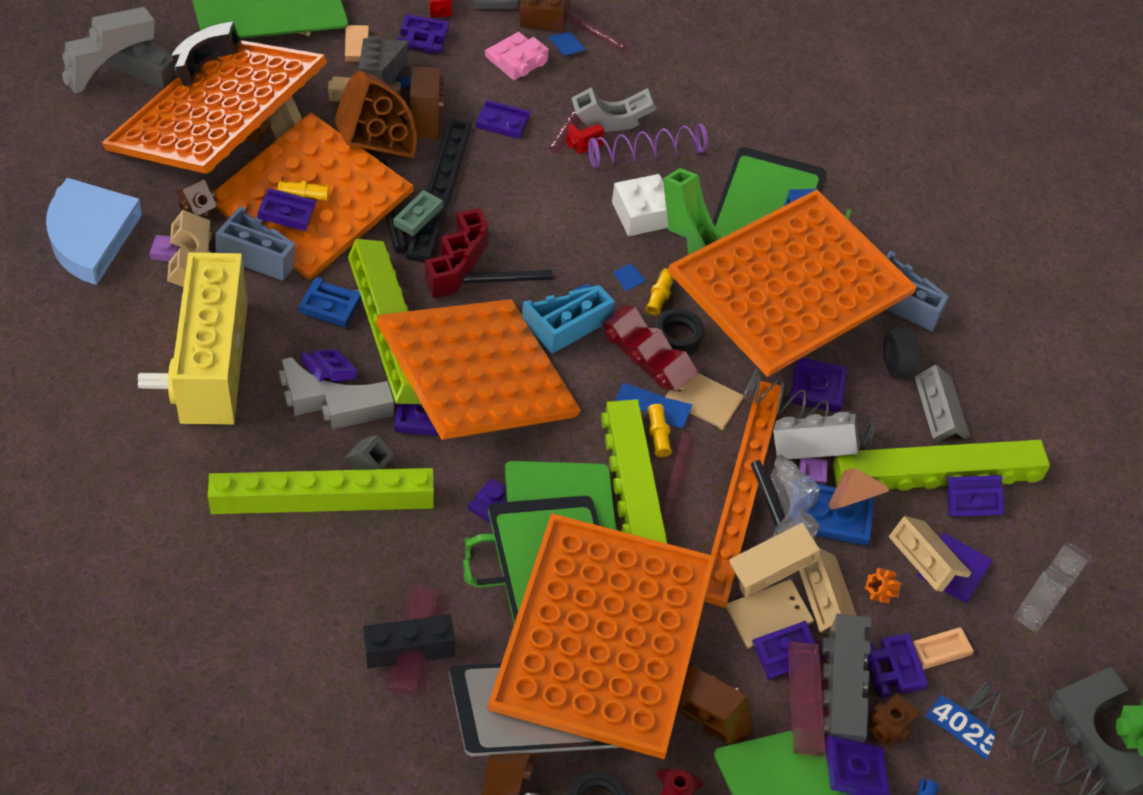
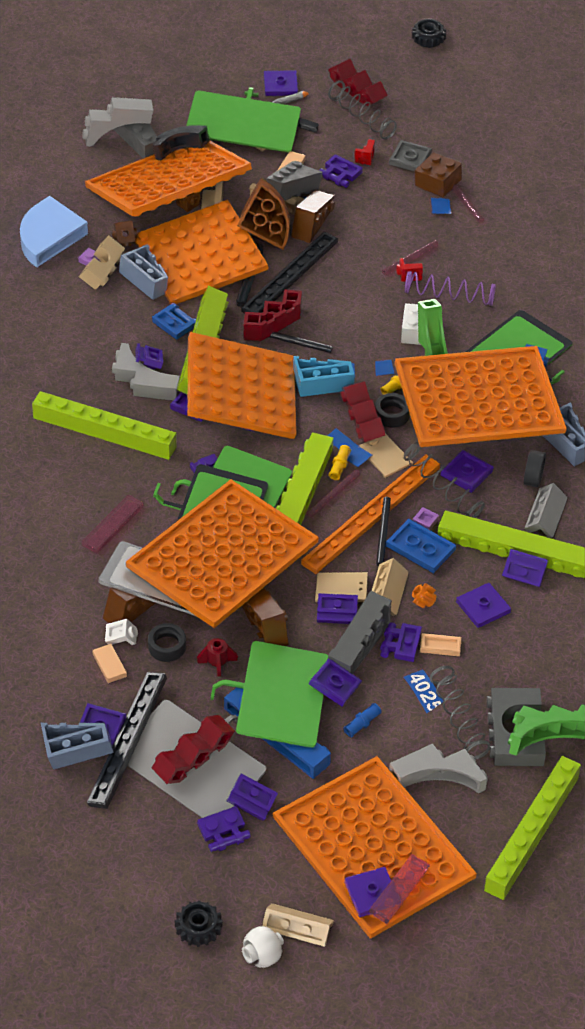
camera: 30 degrees right, 5 degrees down
(208, 341) = (80, 315): light yellow piece -> none
(286, 209) = (175, 255): dark purple plate -> none
(305, 190) = (193, 246): yellow pin -> none
(369, 454) = (144, 413): dark grey brick -> none
(418, 213) = (262, 283): sand green plate -> none
(427, 635) = (119, 520): black arch -> none
(502, 119) = (361, 243): dark purple plate -> none
(517, 55) = (399, 204): bright pink plate -> none
(613, 115) = (435, 261): light grey arch -> none
(774, 559) = (357, 554): tan panel -> none
(796, 495) = (400, 526): clear arch -> none
(806, 699) = (328, 635): clear pink tile -> none
(817, 436) = (436, 495): light grey brick -> none
(855, 487) = (440, 533): nougat slope -> none
(893, 720) = (375, 666): reddish brown brick -> none
(927, 552) = (467, 586): tan panel -> none
(1052, 586) = (536, 634): clear arch -> none

